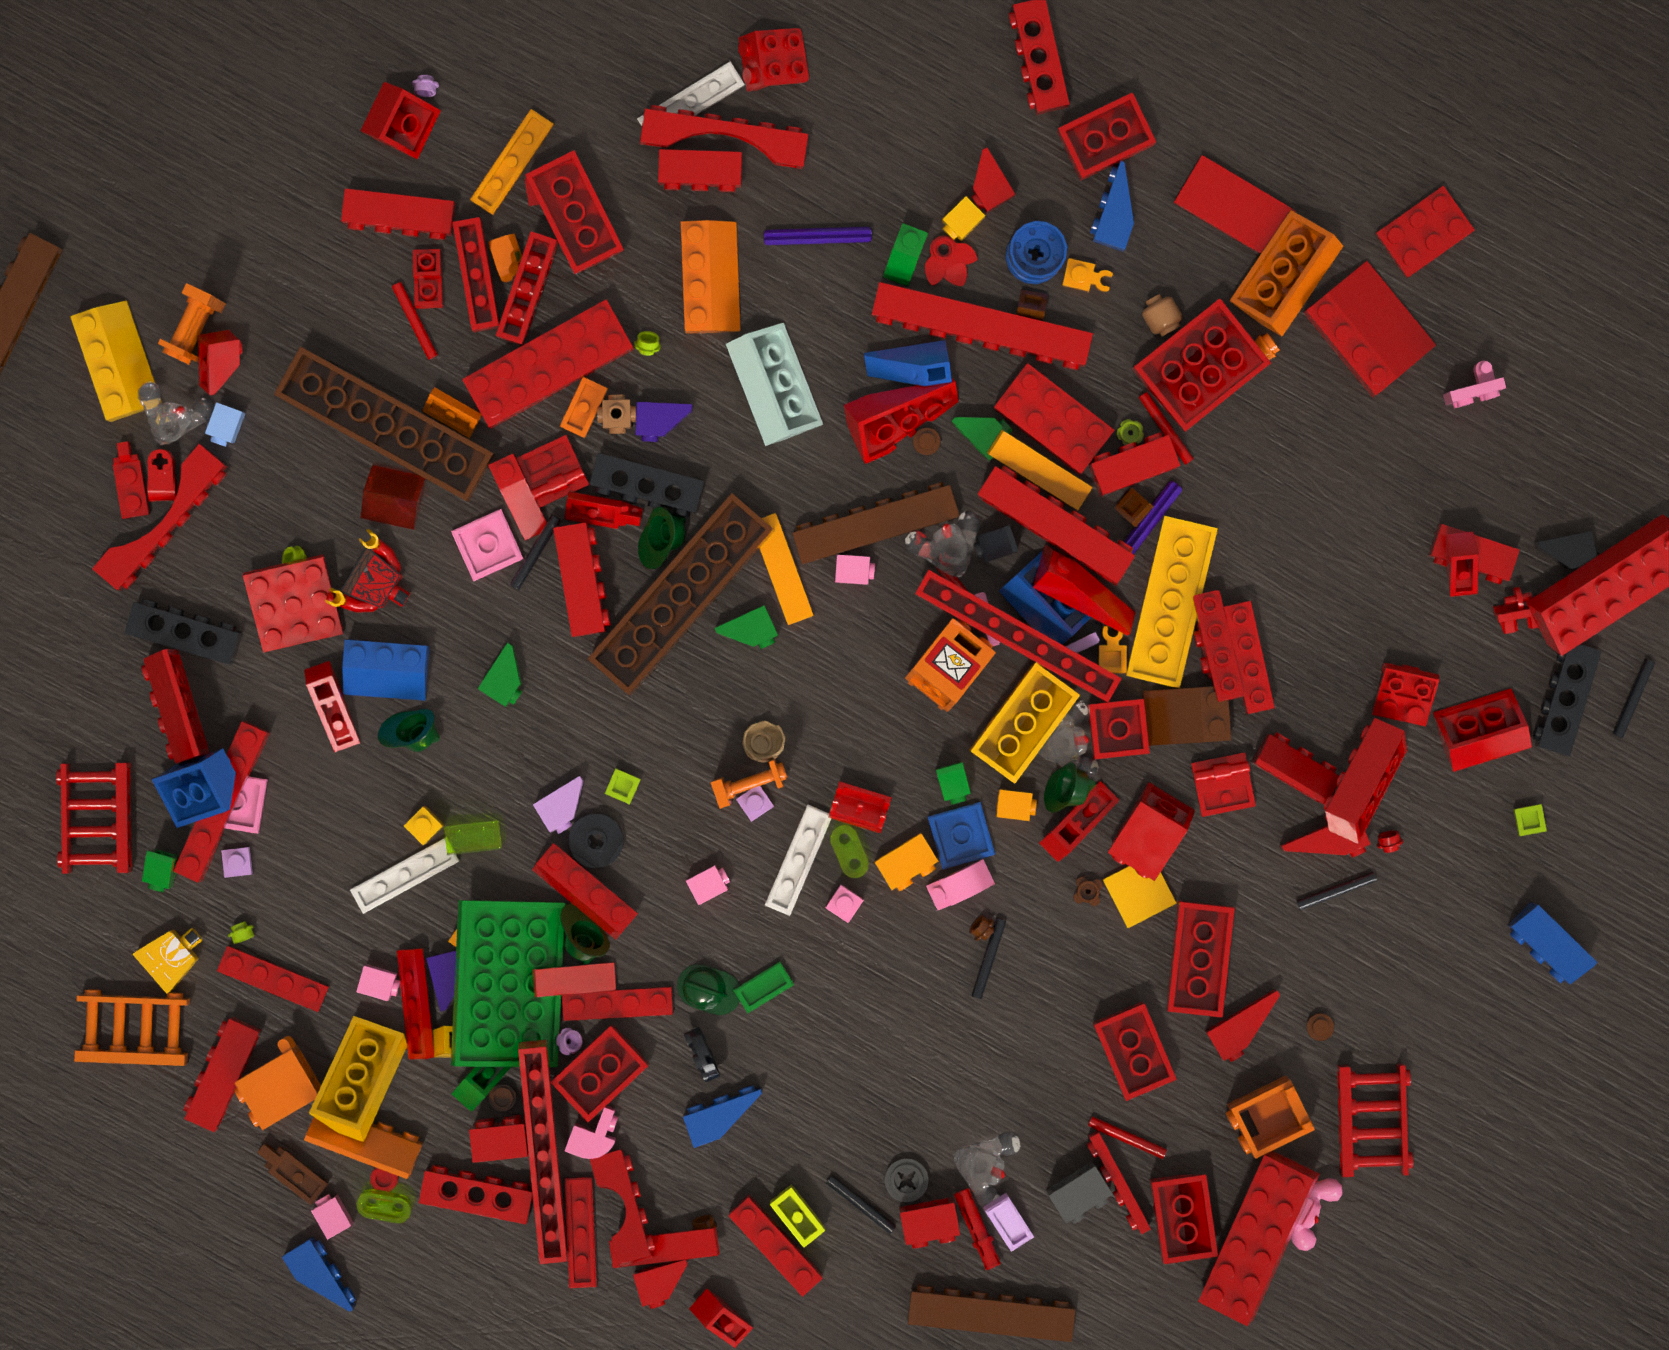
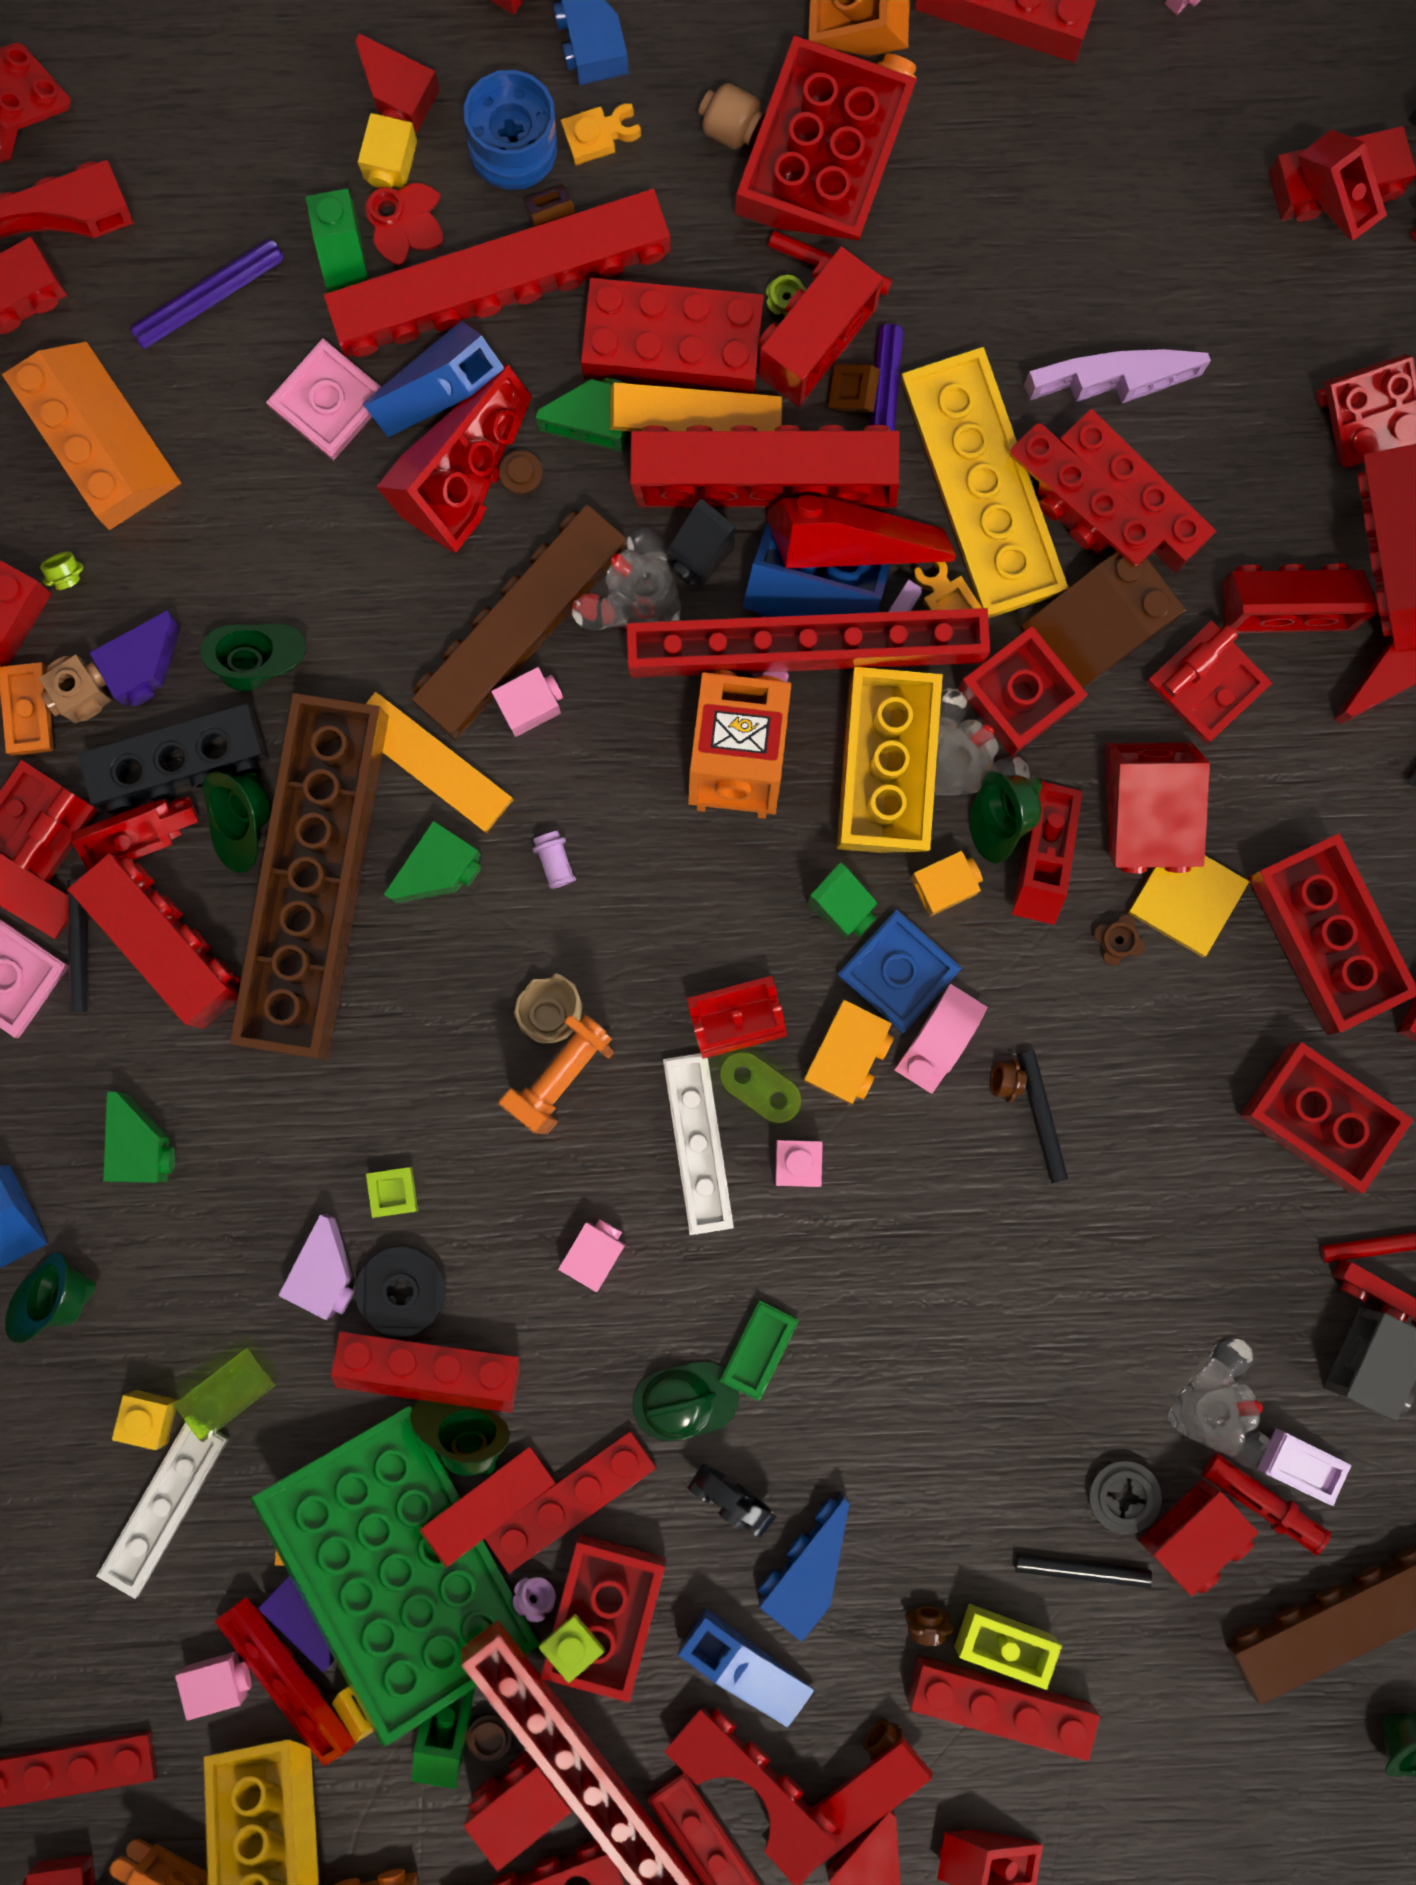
camera: 30 degrees left, 5 degrees down
(576, 1076) = (571, 1648): none -> lime plate
(593, 1143) = (650, 1725): bright pink brick -> none
(655, 1144) = (743, 1668): none -> slope
(723, 454) = (252, 654): none -> dark green piece
(755, 803) = (589, 1101): lavender plate -> none
(763, 1181) = (928, 1625): none -> reddish brown plate
(774, 383) = (265, 519): light aqua slope -> none
(815, 663) = (554, 859): none -> lavender pin
(846, 334) = (325, 399): none -> bright pink tile
(1288, 591) = (1129, 372): none -> lavender slope

